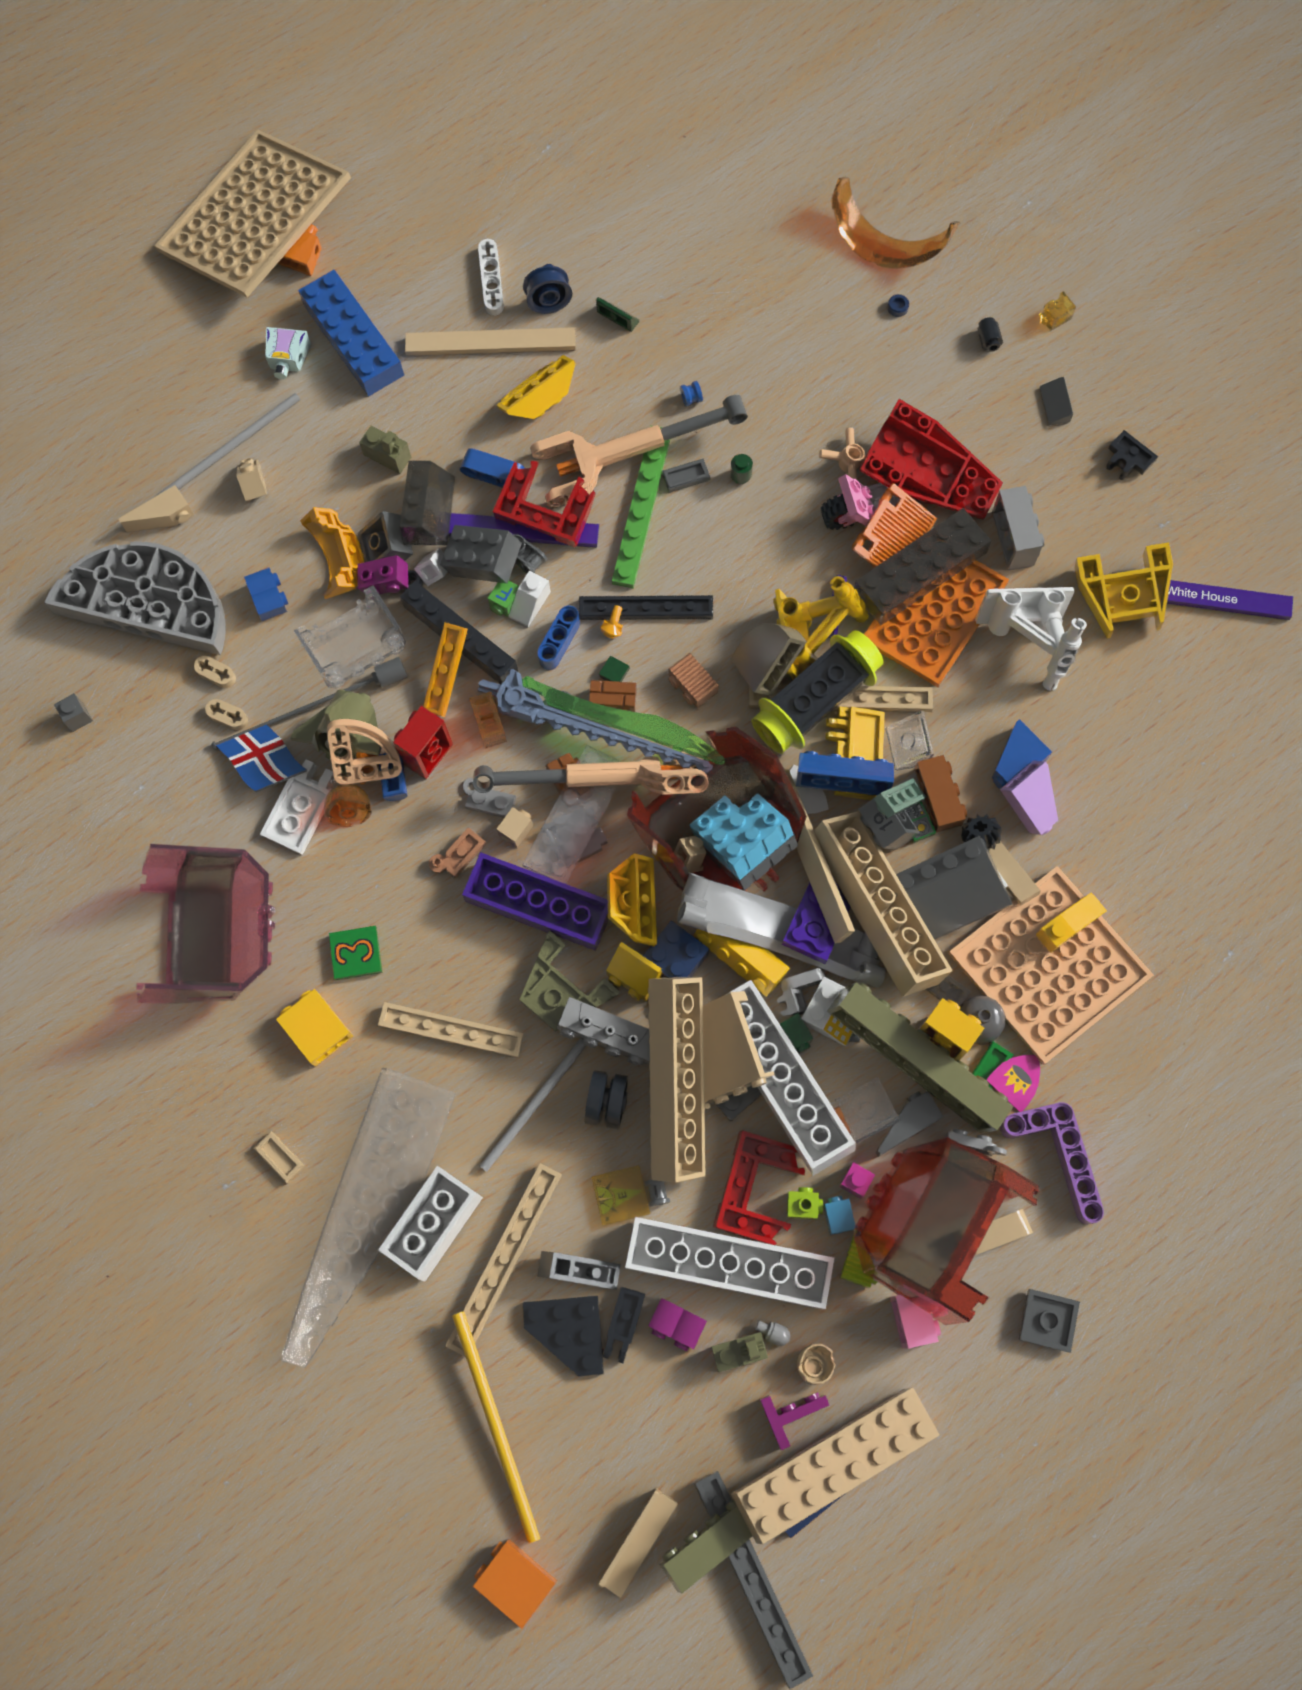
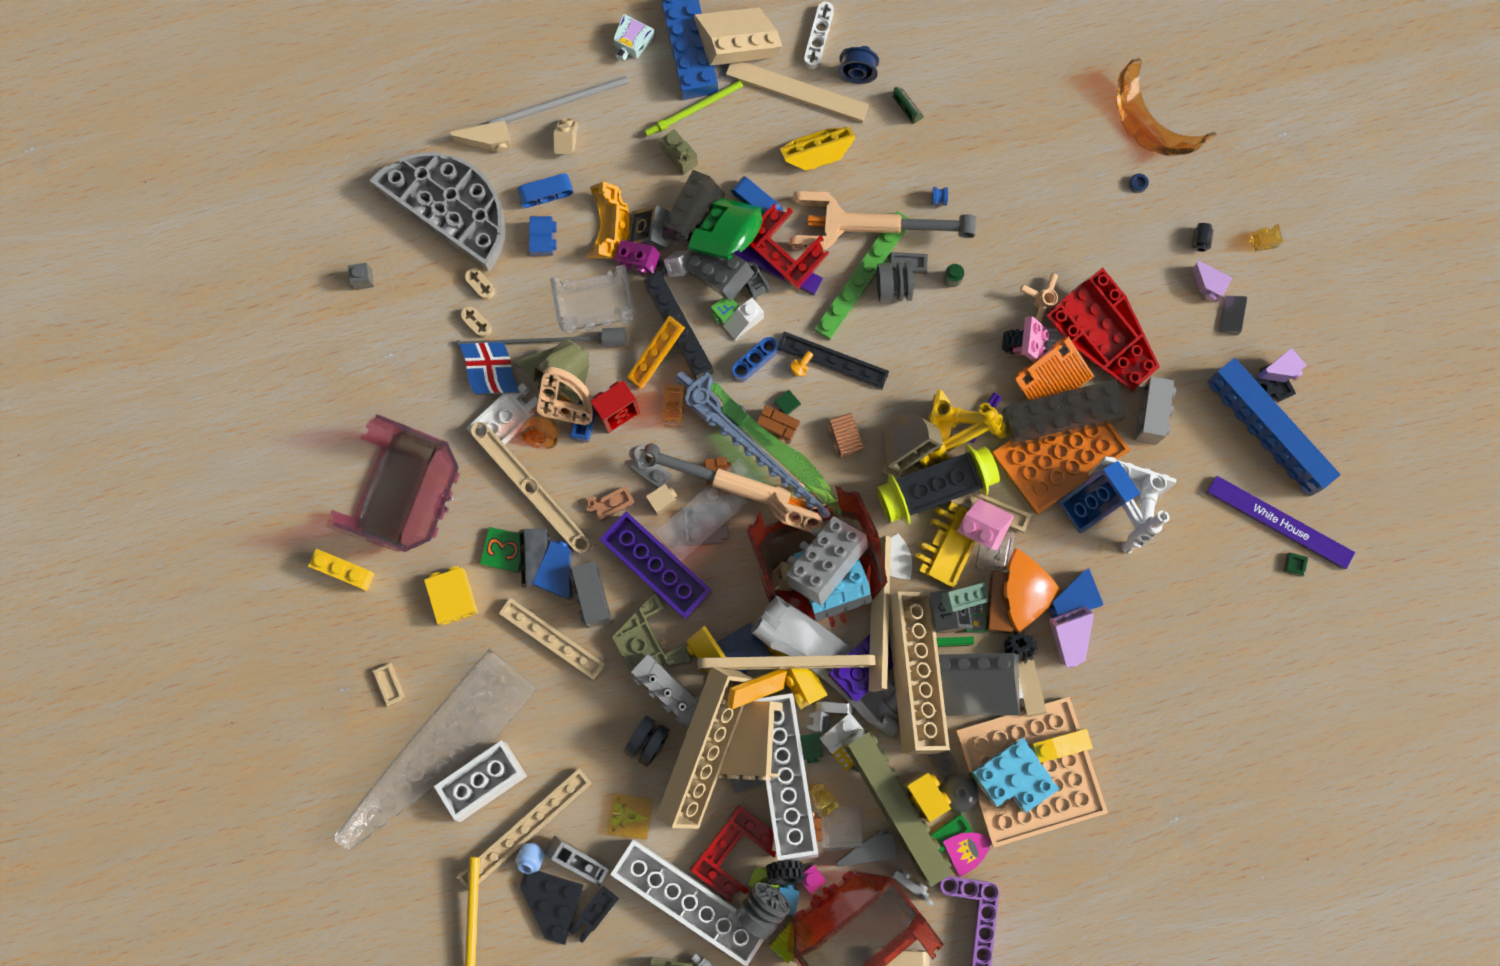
camera: 20 degrees right, 5 degrees up
(173, 1047) = (341, 569): none -> yellow brick
(250, 544) = (545, 190): none -> blue beam
(356, 428) = (662, 124): none -> lime bar
(373, 878) = (539, 496): none -> tan beam
(388, 936) = (532, 550): none -> black slope
(403, 306) = (737, 36): none -> tan slope
(425, 953) = (555, 570): none -> blue slope
(472, 508) = (727, 229): none -> green slope
(476, 961) = (590, 594): none -> dark grey brick
(523, 1289) = (530, 858): none -> light blue head
(533, 1105) = (591, 721): light grey piece -> none
(633, 898) = (728, 594): yellow wedge -> none
(657, 1192) = (657, 827): dark grey bush -> none
(677, 1324) = (633, 931): magenta brick -> none
(685, 495) = (895, 282): none -> dark grey wheel
(708, 987) = (756, 688): none -> light orange tile
(729, 812) = (826, 560): none -> light grey piece
(732, 944) = (788, 662): none -> tan beam
(818, 1235) = (763, 910): none -> dark grey wheel
(825, 1182) = (785, 872): none -> black tyre
(834, 1086) = (823, 799): none -> clear yellow brick
(844, 774) = (932, 559): blue slope -> none
(888, 714) = (986, 524): none -> bright pink slope
(908, 855) = (955, 641): none -> green tile
(964, 767) = (1028, 590): none -> orange brick
(999, 636) = (1099, 497): none -> blue brick
(1017, 376) = (1210, 281): none -> lavender slope
(1037, 971) = (1015, 776): none -> medium azure piece
(1128, 593) = (1219, 499): yellow wedge -> none
(1135, 433) = (1284, 368): none -> lavender slope
(1150, 498) = (1273, 428): none -> blue brick
(1236, 633) = (1295, 564): none -> dark green tile

